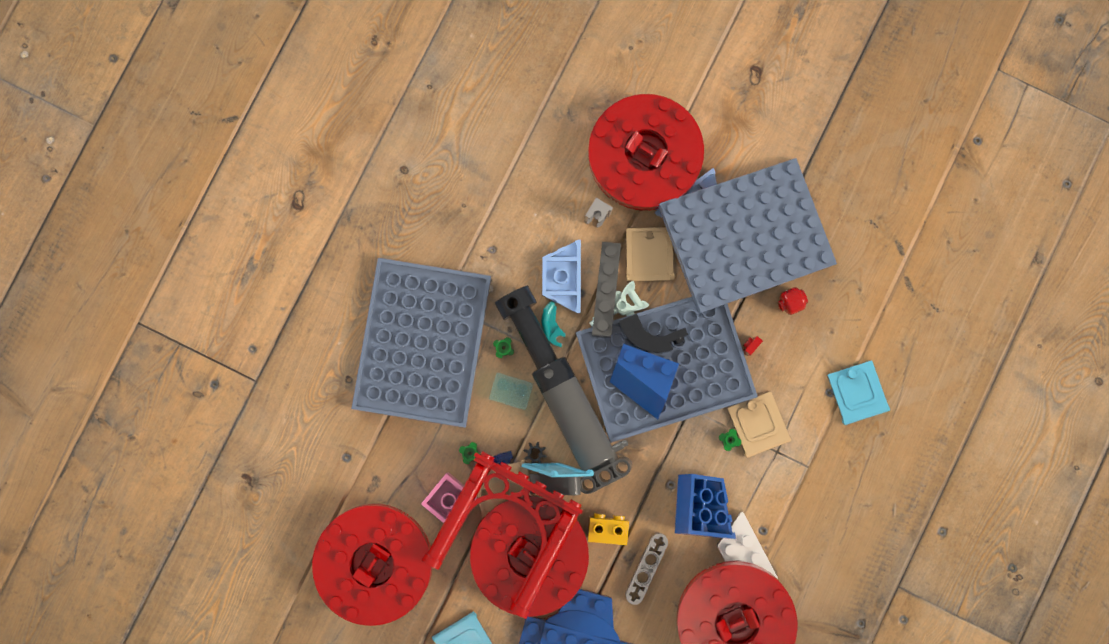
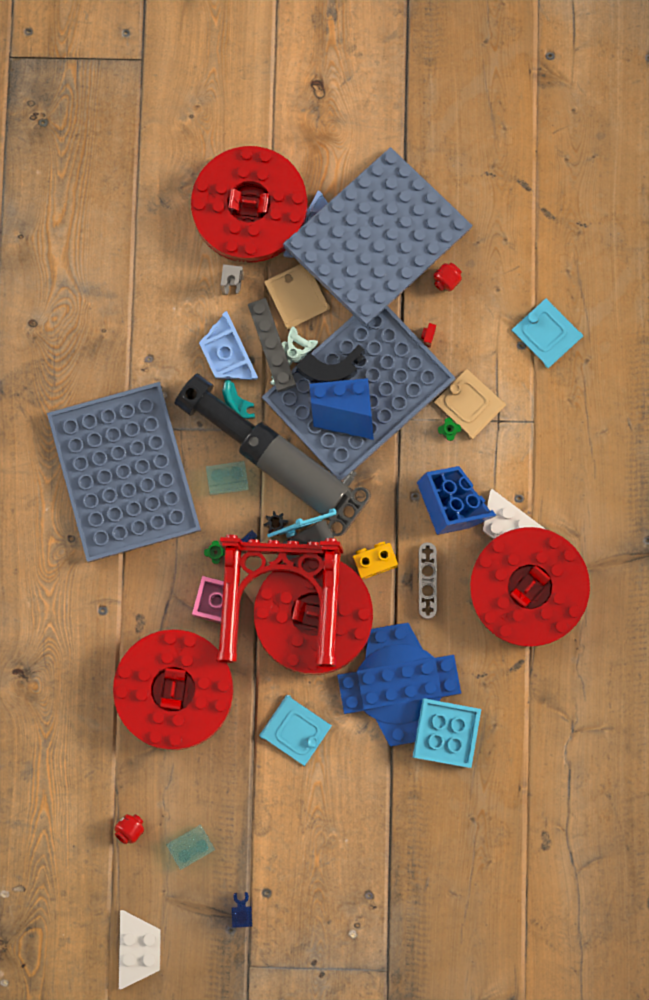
camera: 20 degrees left, 5 degrees down
(507, 351) = (202, 436): green plate -> none

